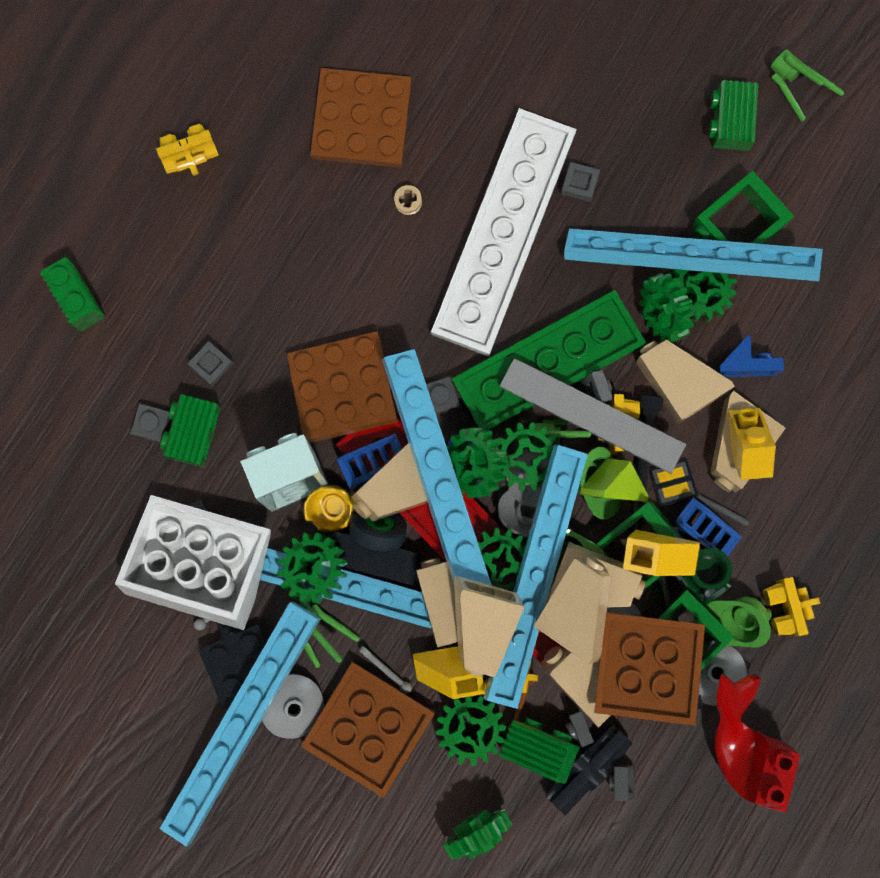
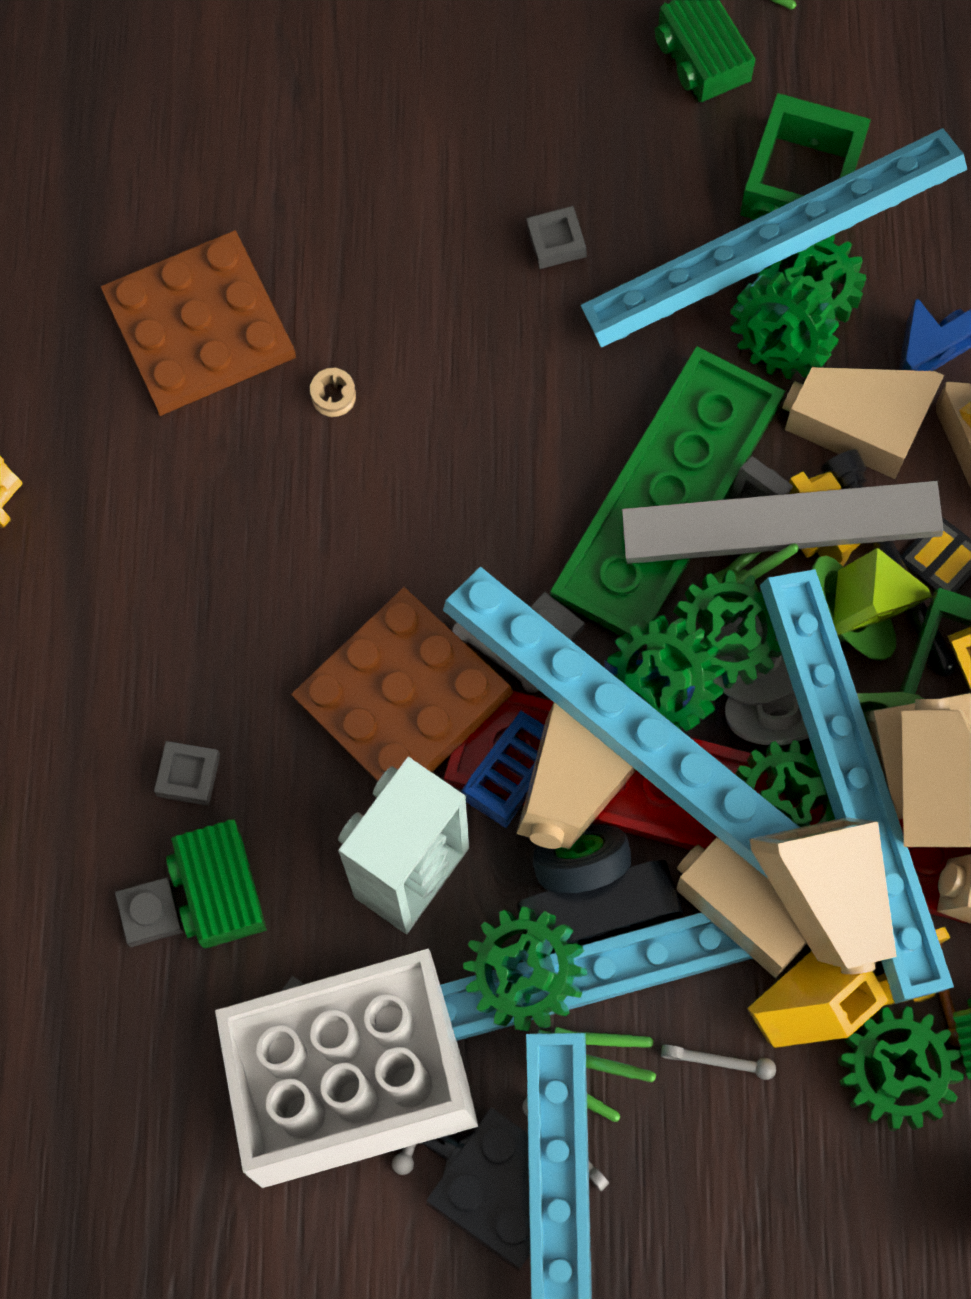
camera: 30 degrees left, 10 degrees down
(300, 691) = (628, 1232): light grey dish -> none
(329, 508) = (492, 872): yellow hair -> none
(368, 729) = (752, 1164): dark orange plate -> none
(503, 232) = (495, 363): white plate -> none

